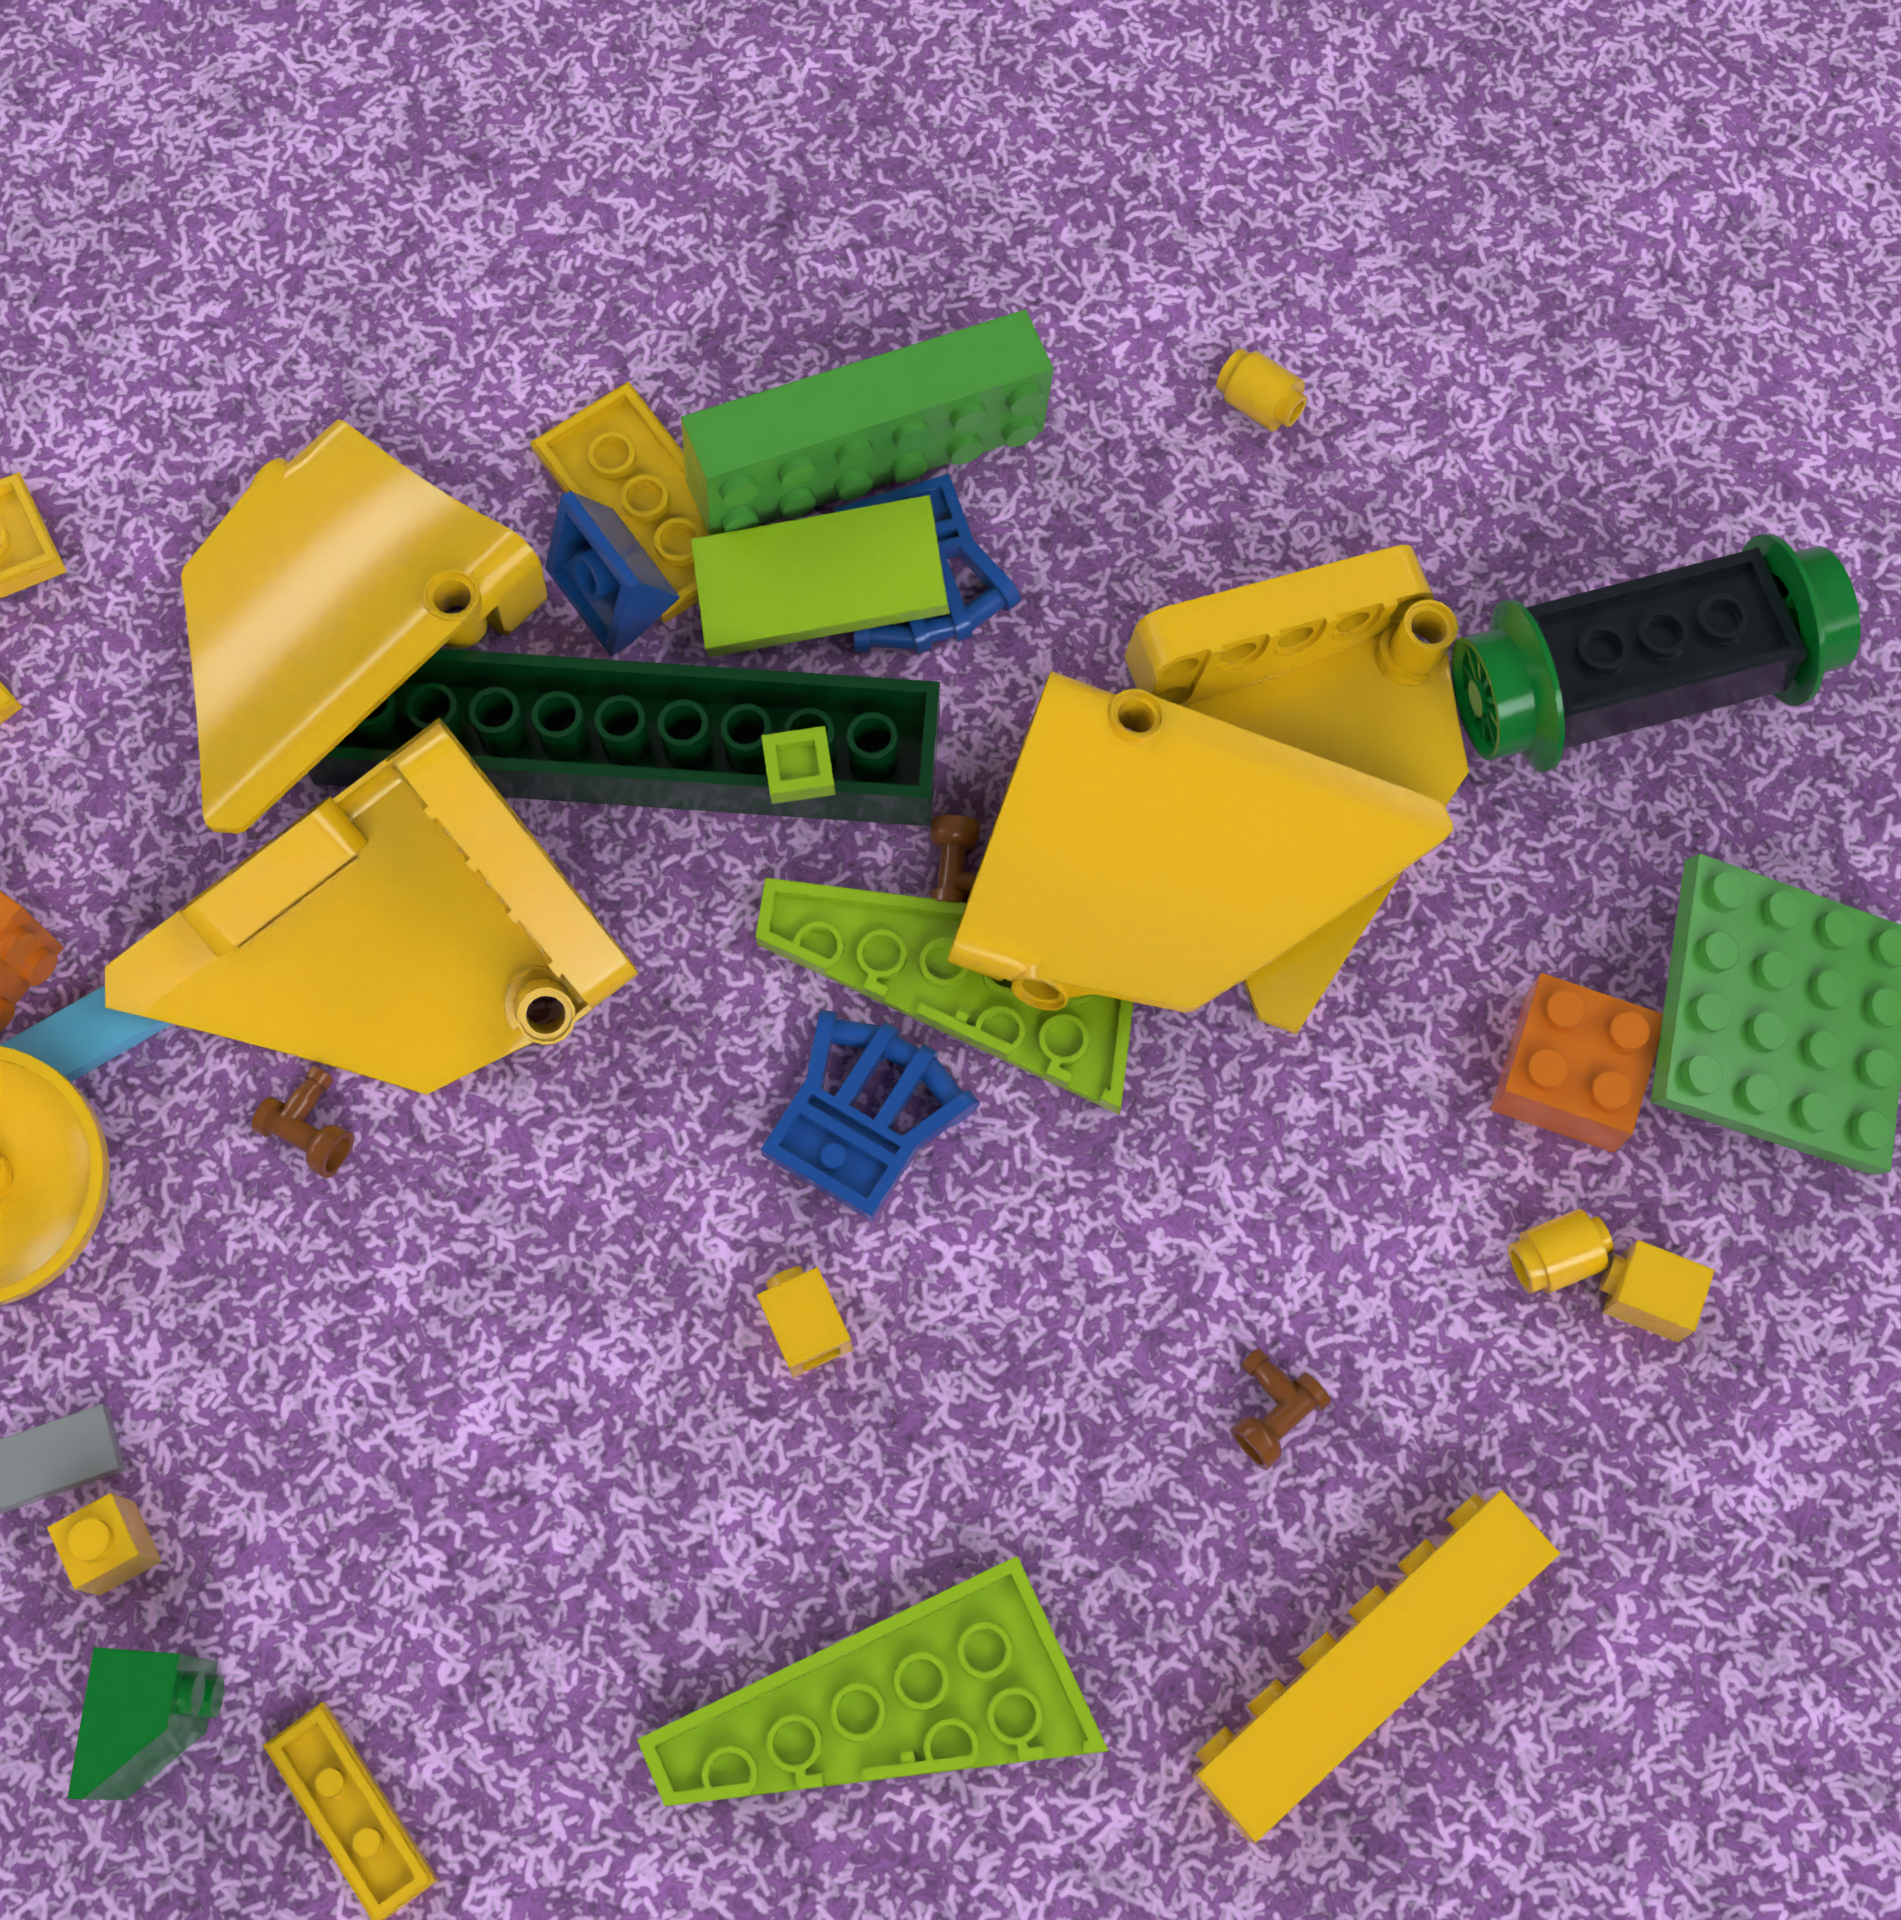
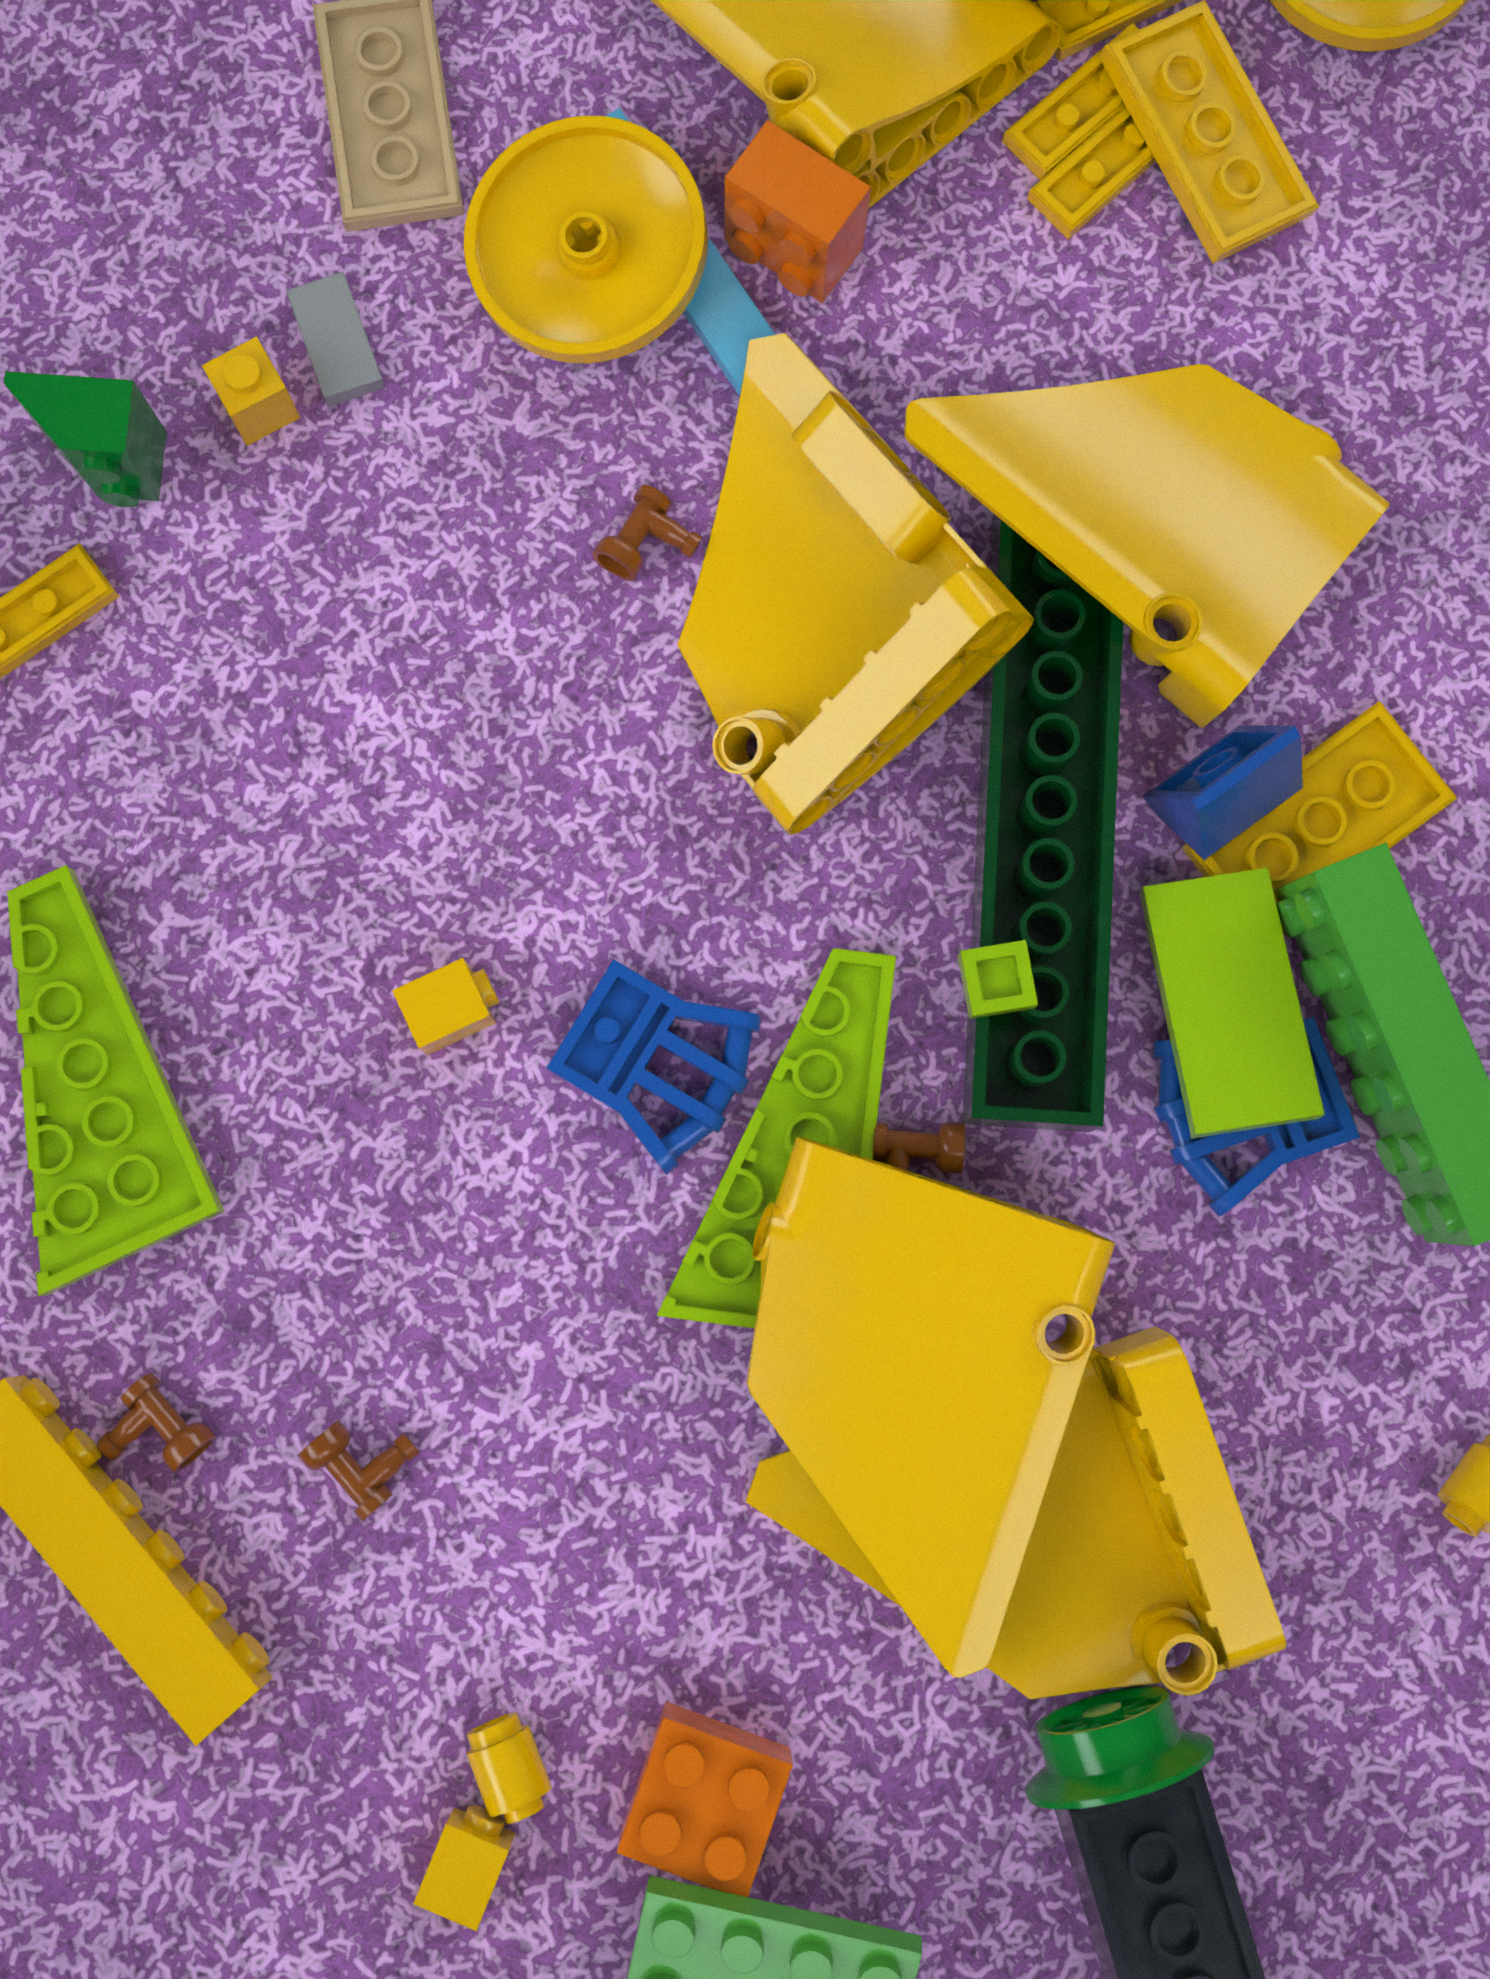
camera: 85 degrees right, 10 degrees up
(1223, 1630) = (151, 1408): none -> dark orange piece

